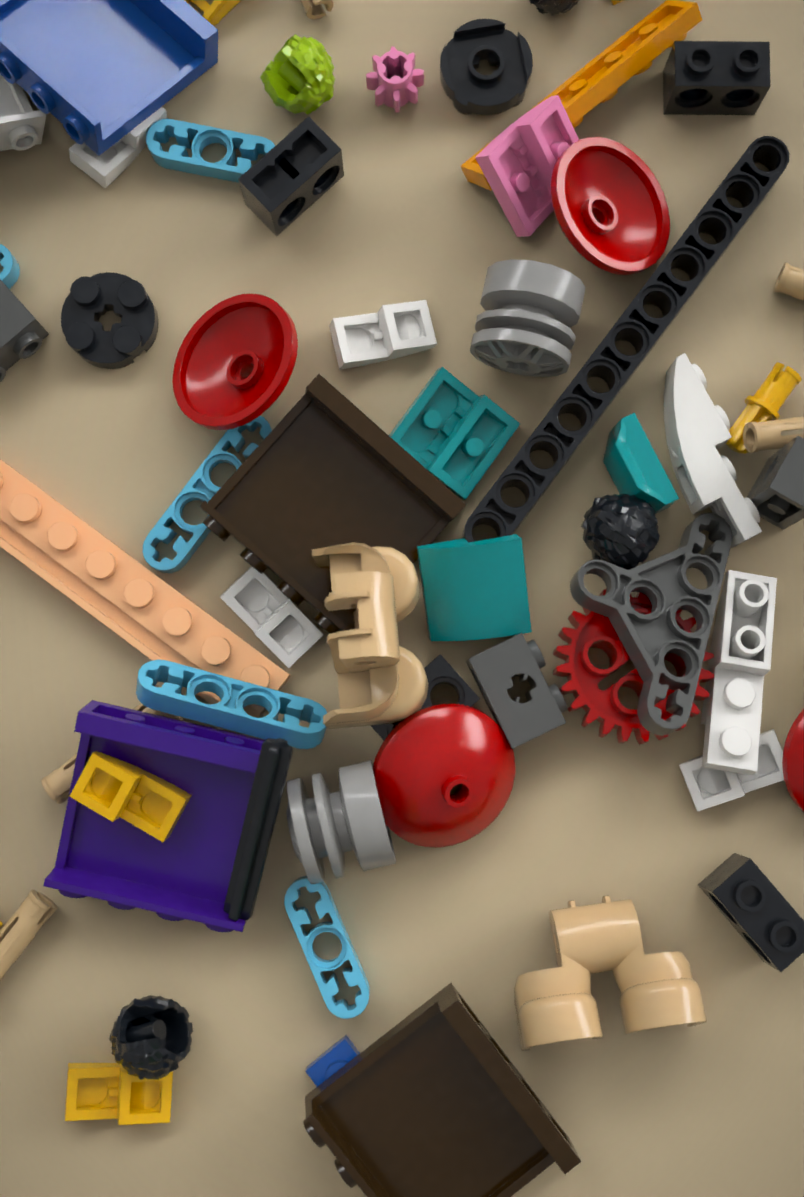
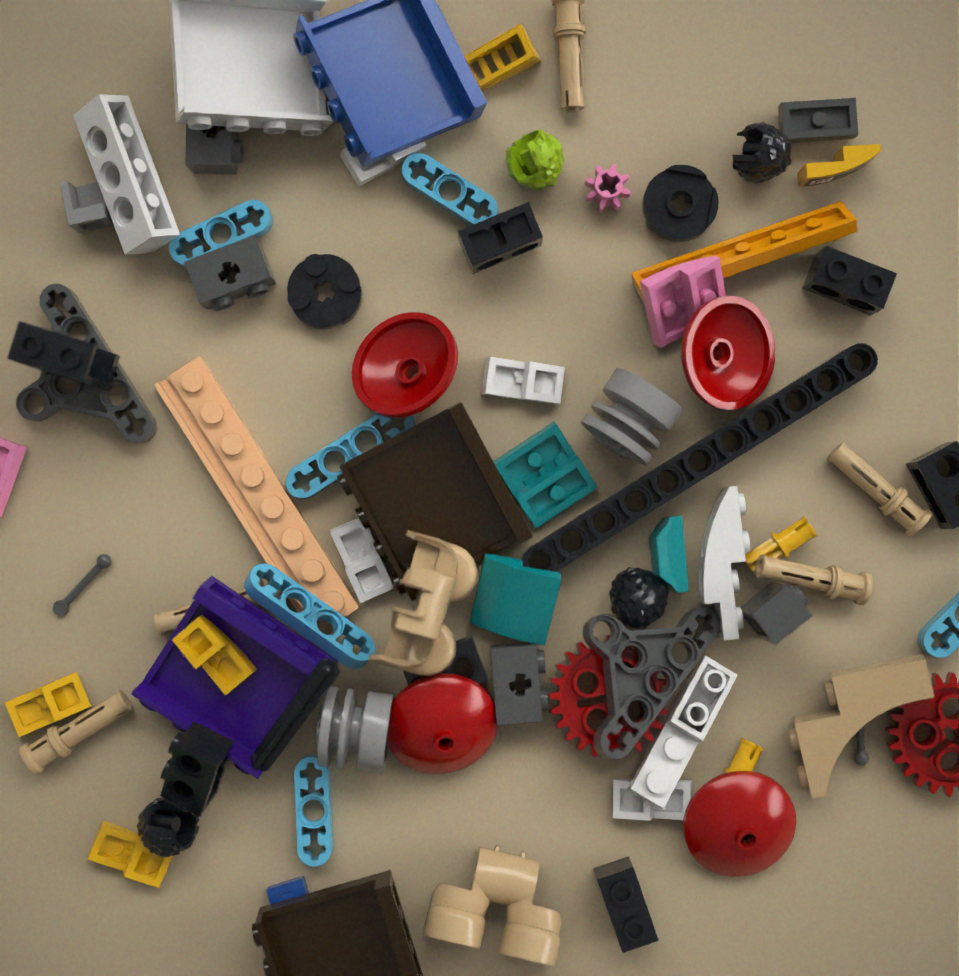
camera: 25 degrees right, 5 degrees up
(158, 947) = (195, 767): none -> black brick

